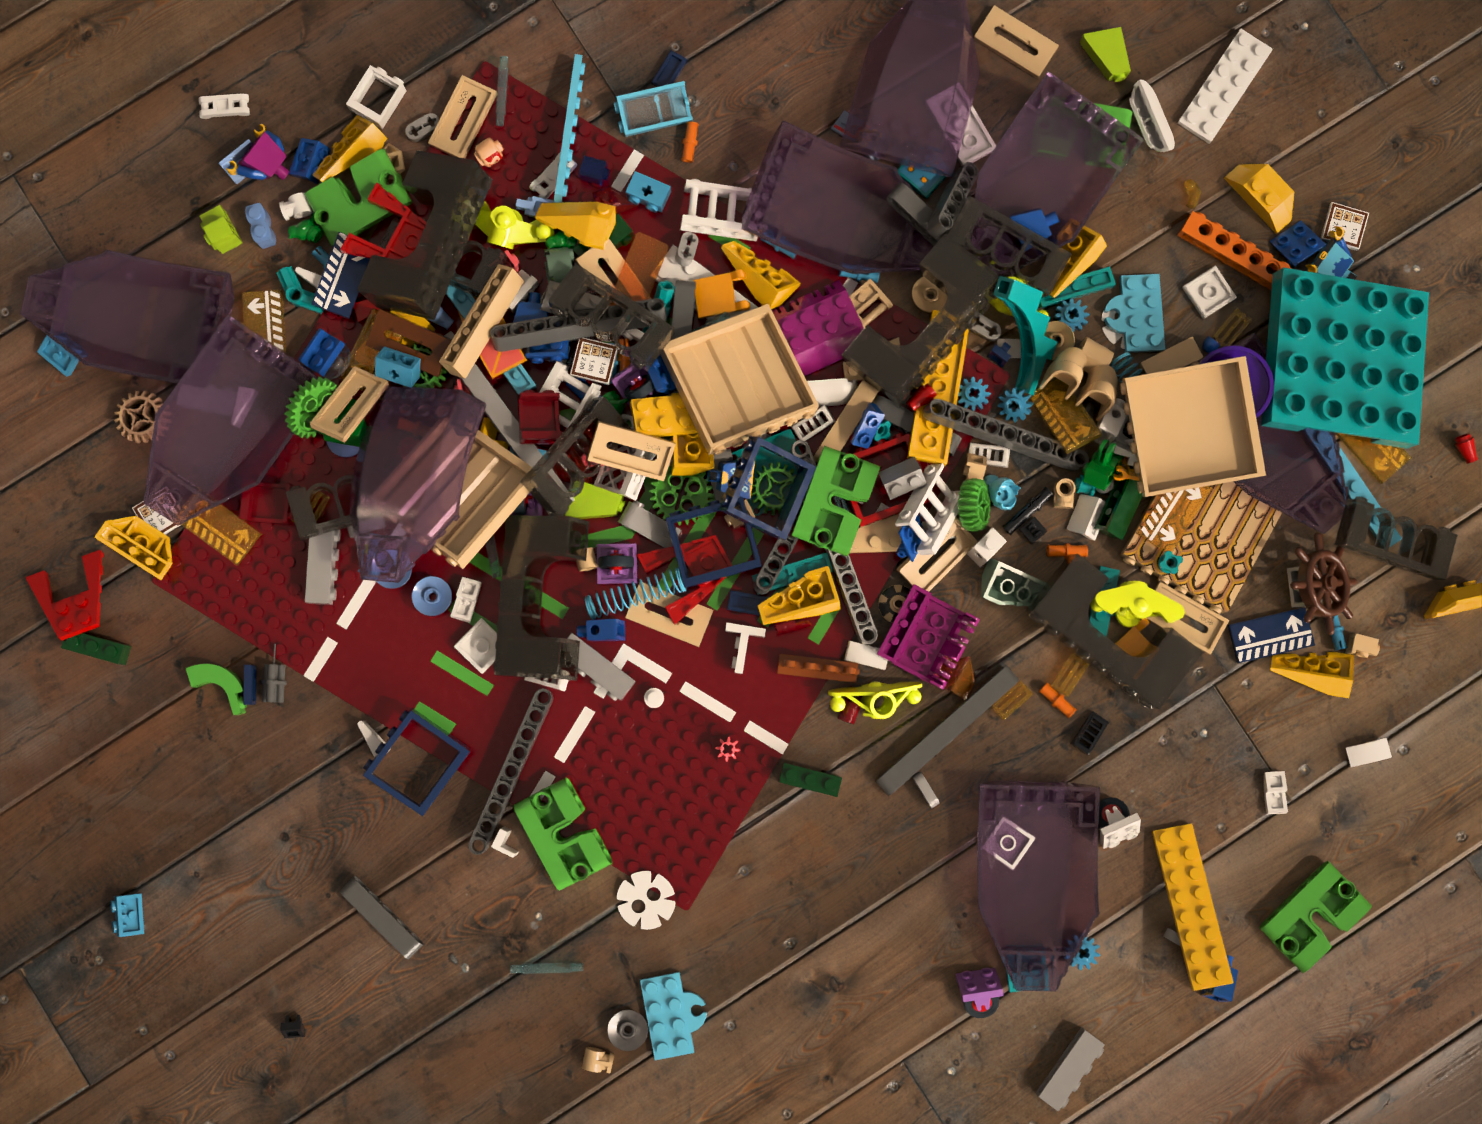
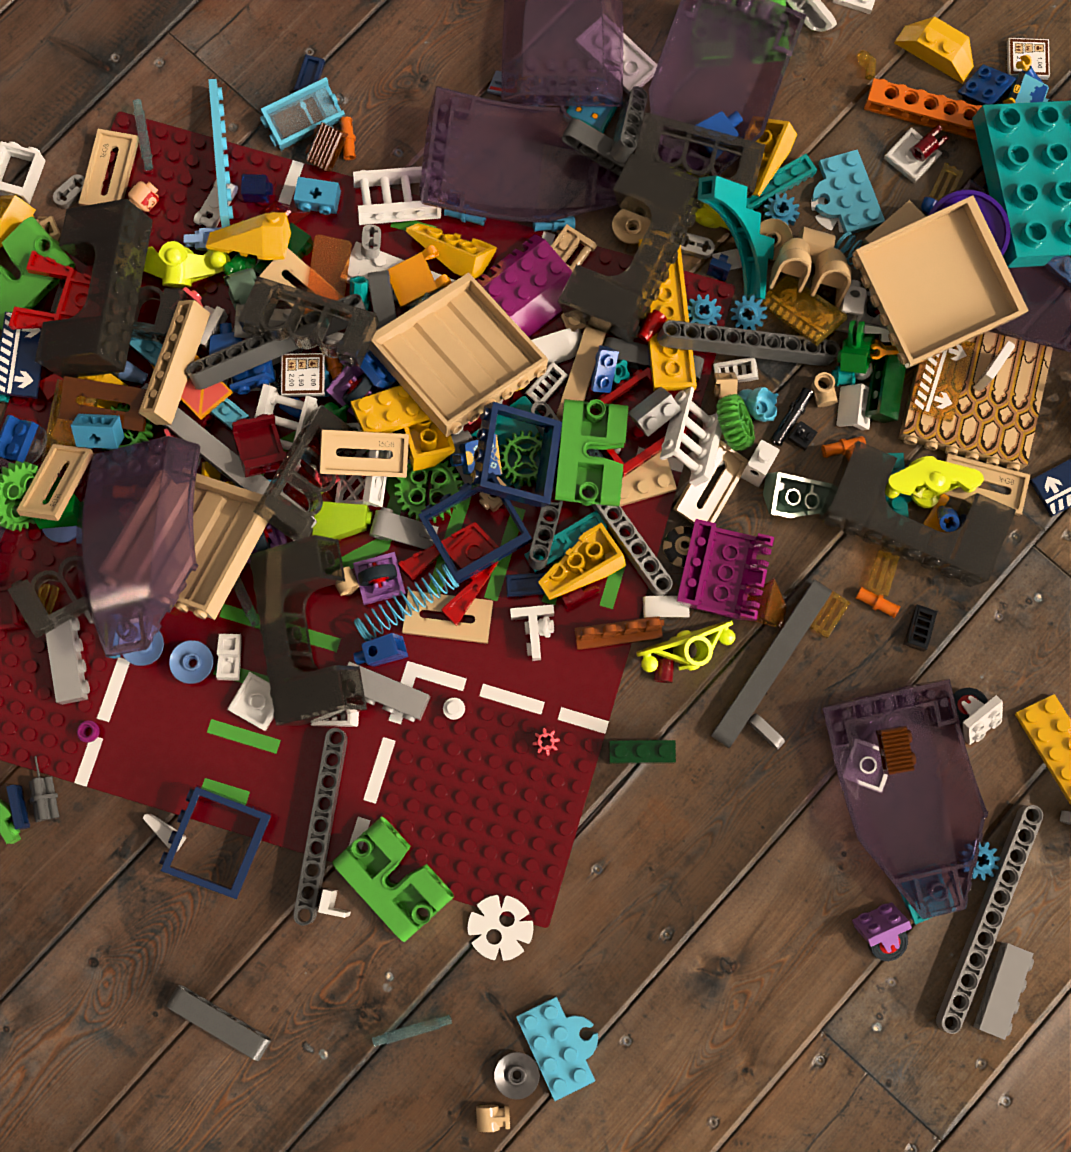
camera: 10 degrees left, 5 degrees down
(320, 634) = (81, 731): none -> magenta plate
(667, 146) = (325, 146): none -> reddish brown brick
(754, 646) = (545, 626): none -> white plate
(910, 541) = (679, 475): blue hinge -> none
(1034, 837) = (896, 749): none -> reddish brown brick
(1075, 1014) = (981, 925): none -> light grey beam
(1140, 637) = (942, 513): none -> blue hinge
(1174, 560) = (957, 425): teal brick -> none
(1222, 515) = (994, 366): none -> white tile
(1225, 287) = (928, 144): none -> dark red hinge

